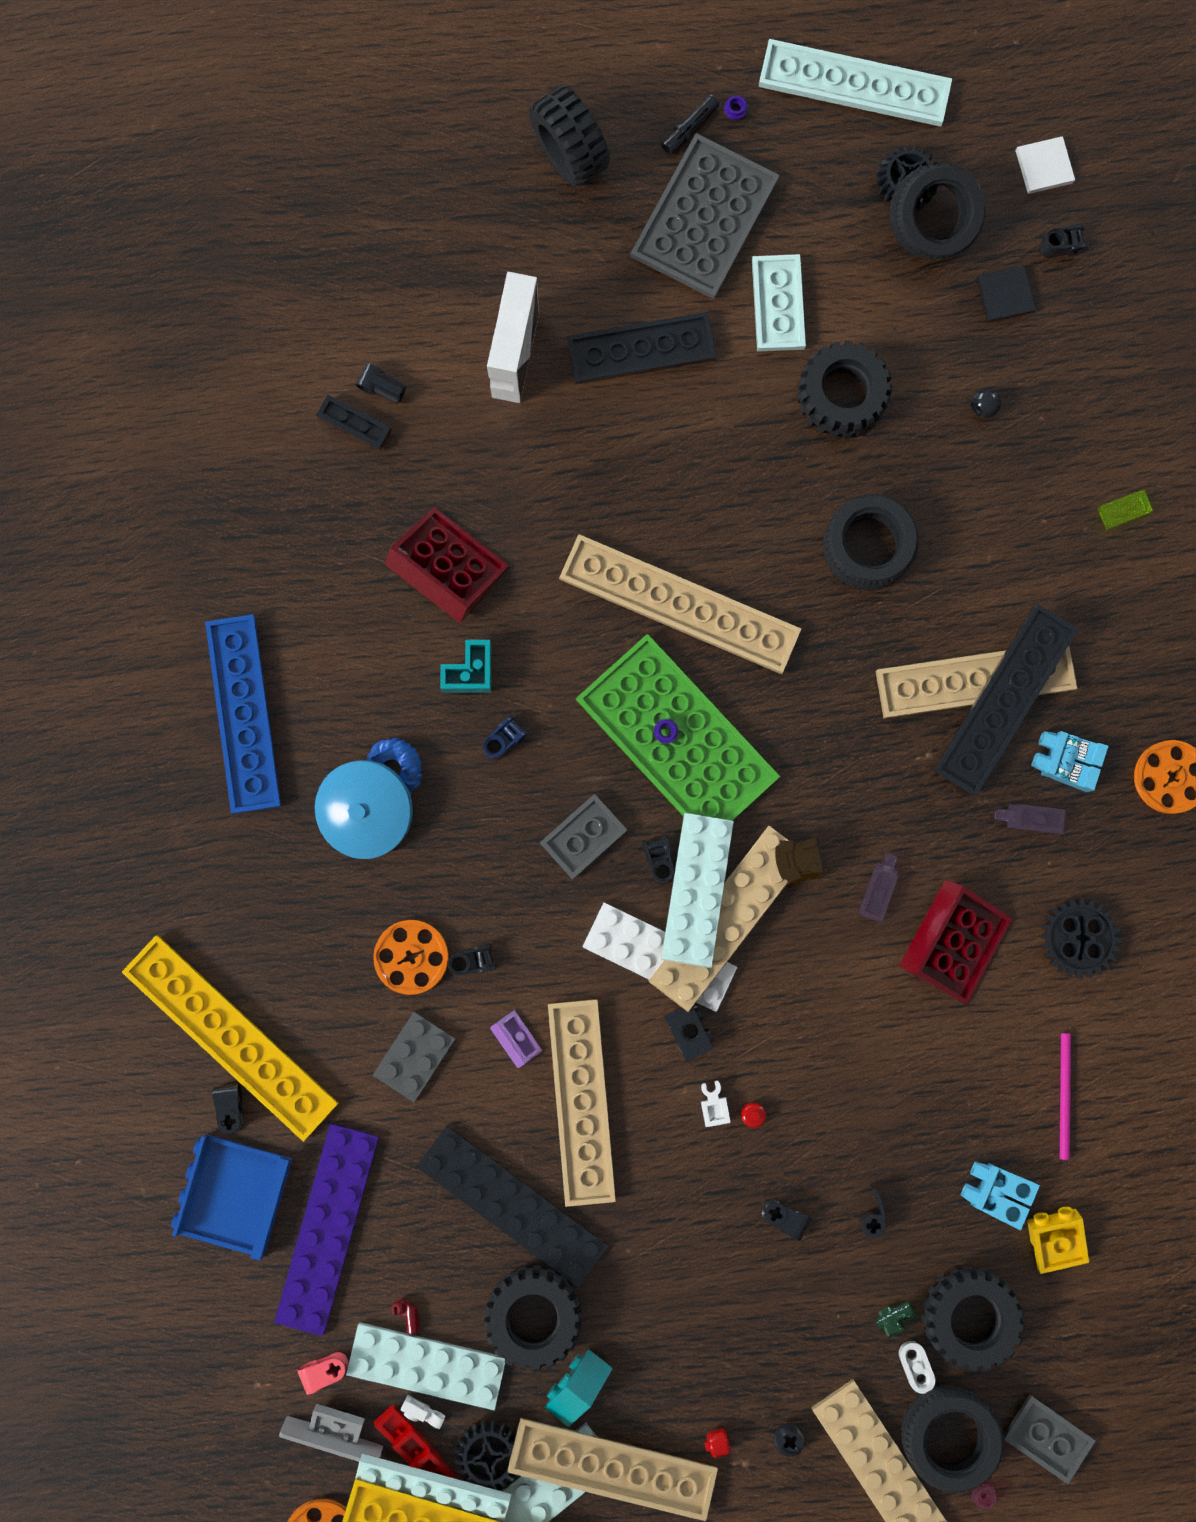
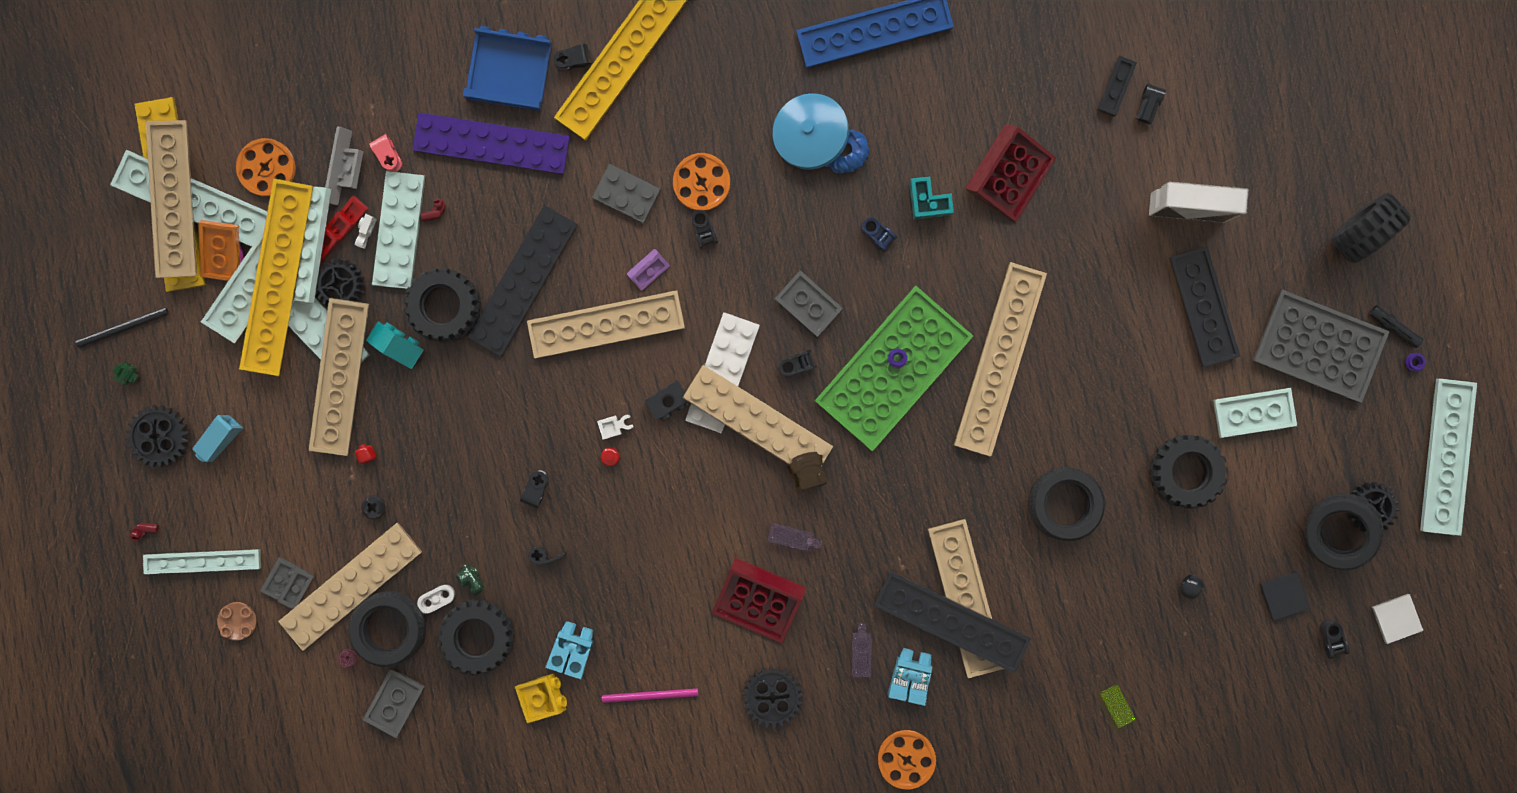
camera: 90 degrees right, 5 degrees up
(697, 890) = (776, 394): light aqua plate -> none

